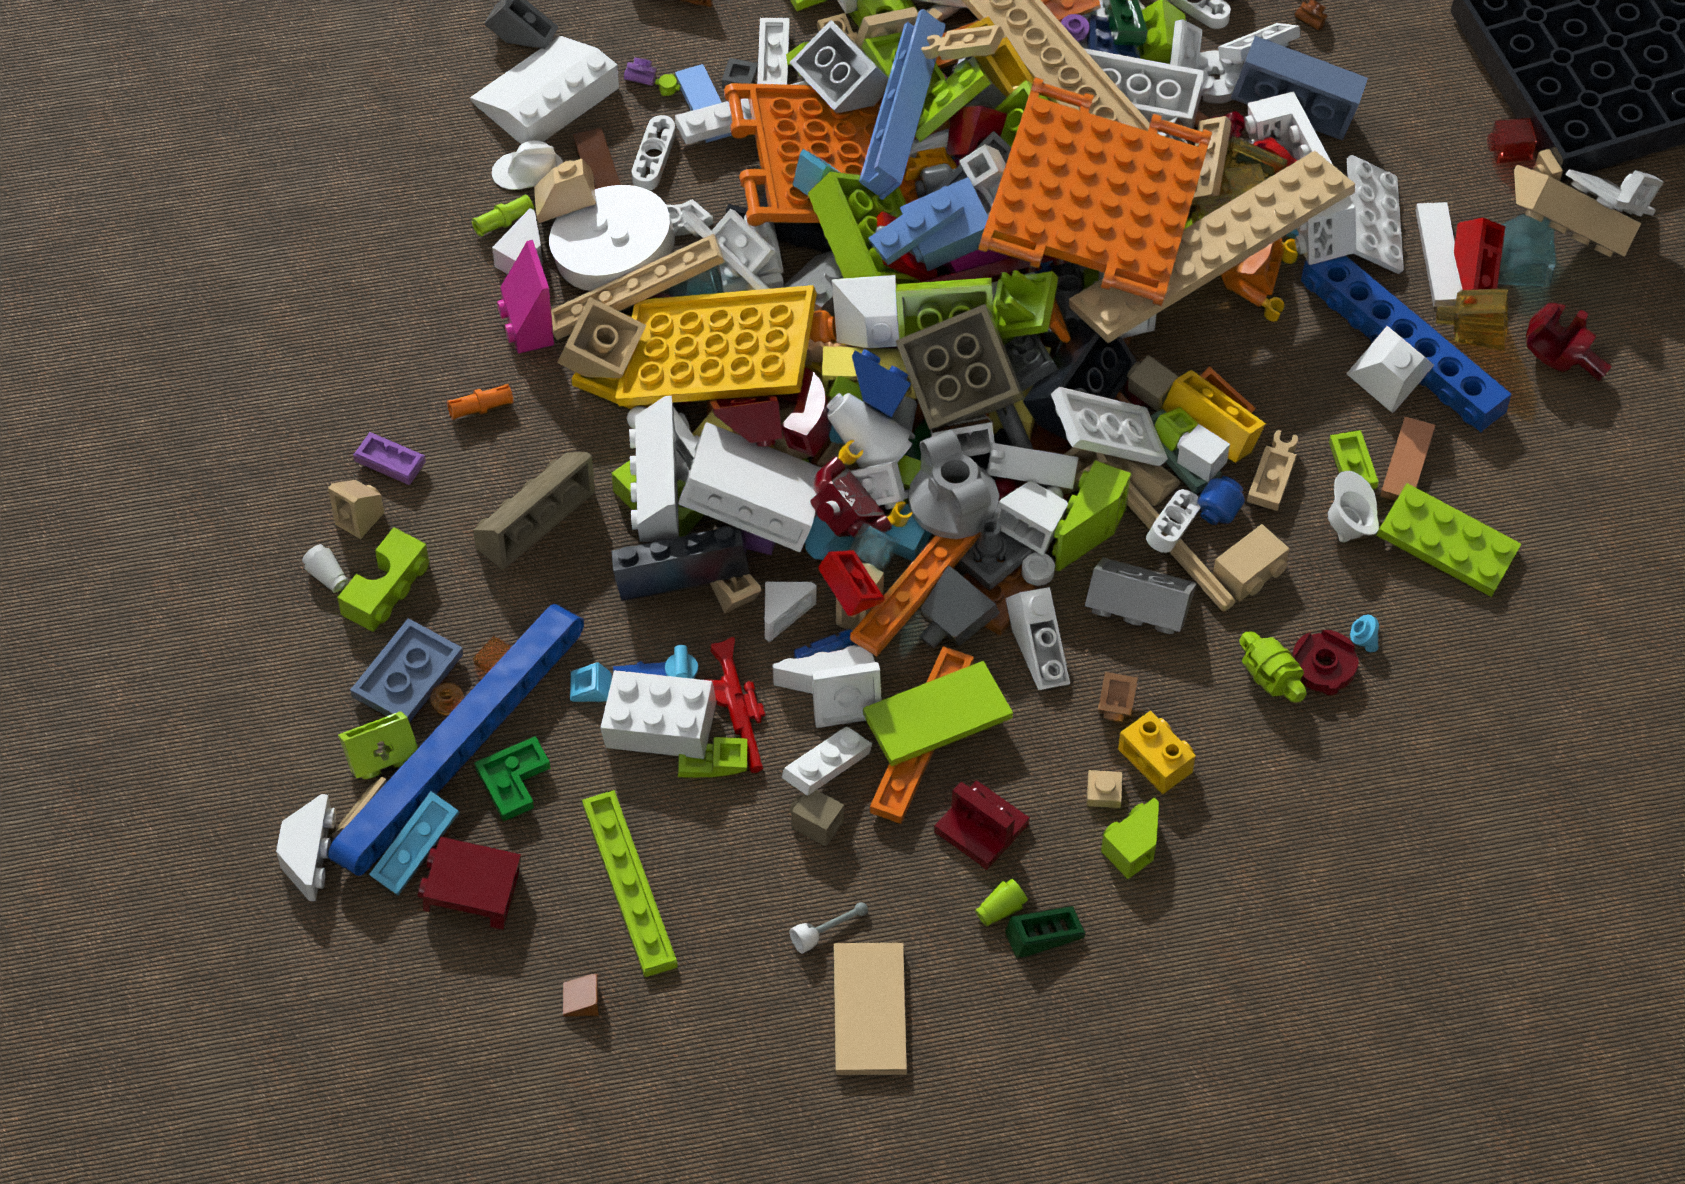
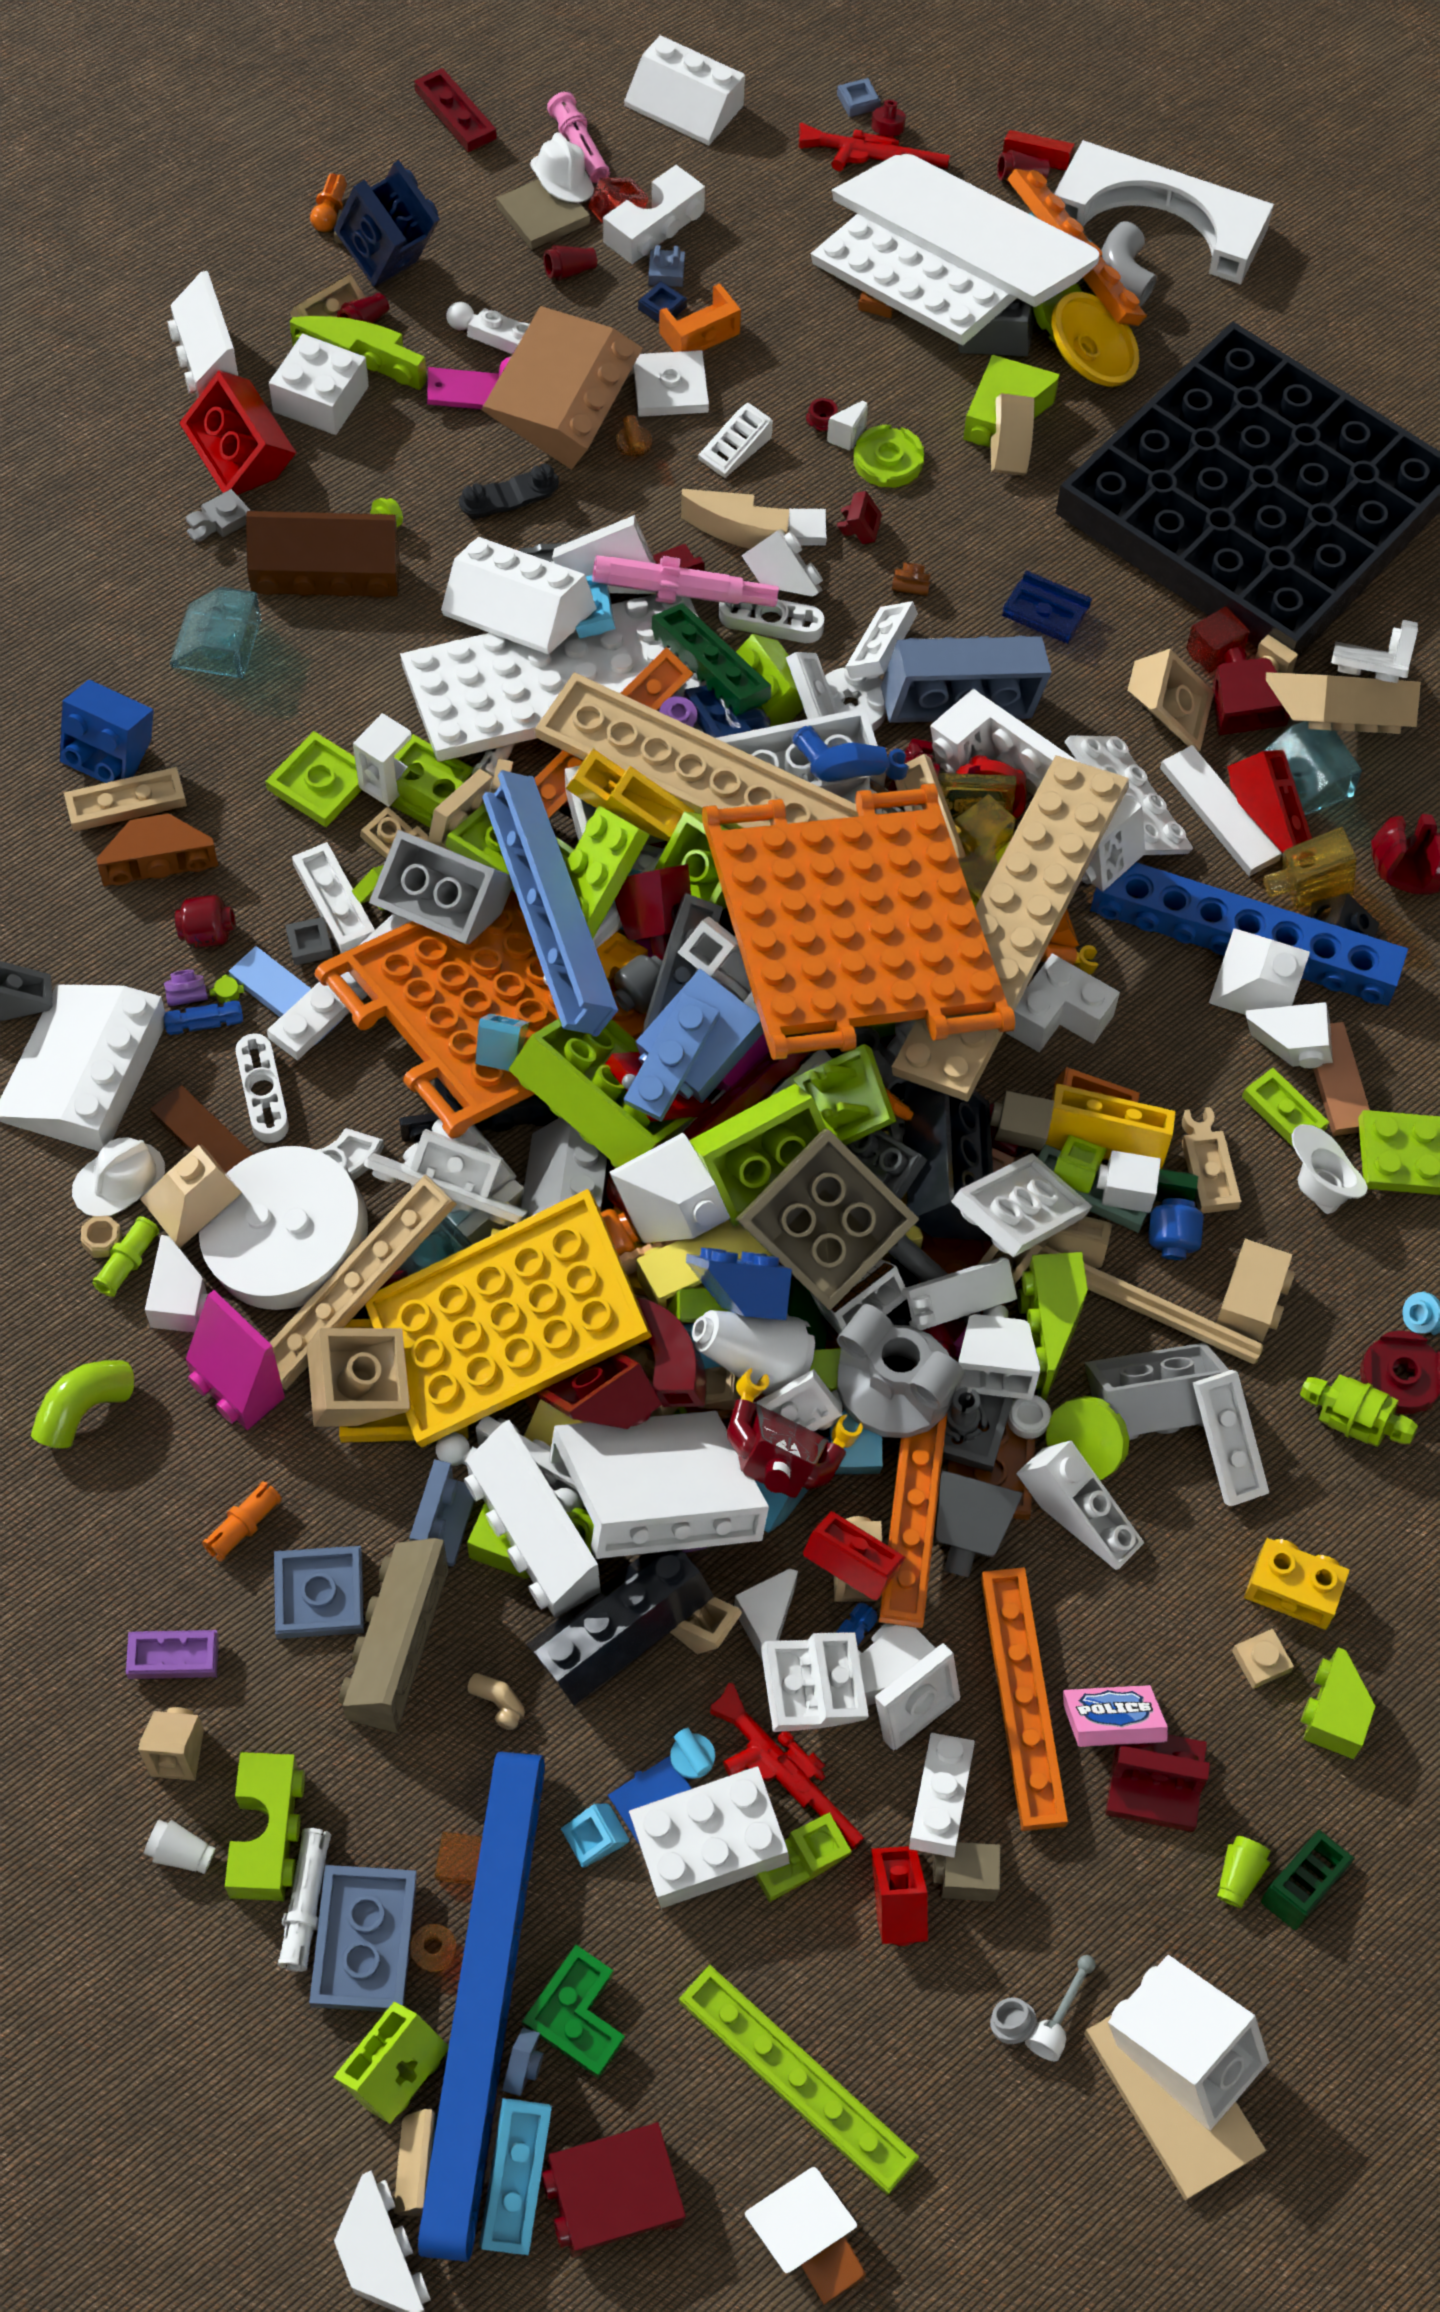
camera: 30 degrees left, 5 degrees up
(375, 642) = (302, 1911): none -> white pin
(421, 278) = (75, 1394): none -> lime cylinder
(459, 783) = (523, 2062): none -> sand blue plate
(494, 194) = (100, 1235): none -> tan tile
(503, 464) = (318, 1592): none -> sand blue tile
(577, 957) = (800, 2219): none -> white sticker
(581, 578) = (502, 1695): none -> tan arm
(608, 448) = (443, 1510): none -> sand blue bracket
(641, 94) = (203, 1017): none -> blue axle
(677, 34) = (204, 921): none -> dark red head
(761, 808) = (900, 1896): none -> red slope
(782, 652) = (814, 1682): none -> white slope
(788, 914) = (1013, 2021): none -> light grey plate
(874, 546) = (850, 1491): clear light blue slope -> none
(894, 976) = (1190, 2040): none -> white slope
(937, 713) = (1031, 1665): lime tile -> none
(964, 43) = (587, 796): tan plate -> none
(973, 768) = (1114, 1716): none -> bright pink tile
(1071, 595) = (1094, 1430): none -> lime tile
(1117, 696) = (1212, 1535): medium nougat bracket -> none
(1166, 639) = (1231, 1437): none -> white plate
(1168, 96) = (848, 759): none -> blue arm
(1174, 530) = (1151, 1315): white beam -> none
(1235, 322) = (1065, 998): none -> white brick
(1239, 472) = (1176, 1185): none -> dark green tile
(1392, 413) = (1294, 1033): none -> white slope
(1400, 70) = (1047, 607): none -> clear blue plate
(1453, 164) = (1173, 695): none -> tan slope
(1487, 358) = (1346, 914): none -> black bracket
(1498, 186) = (1244, 697): none -> dark red torso

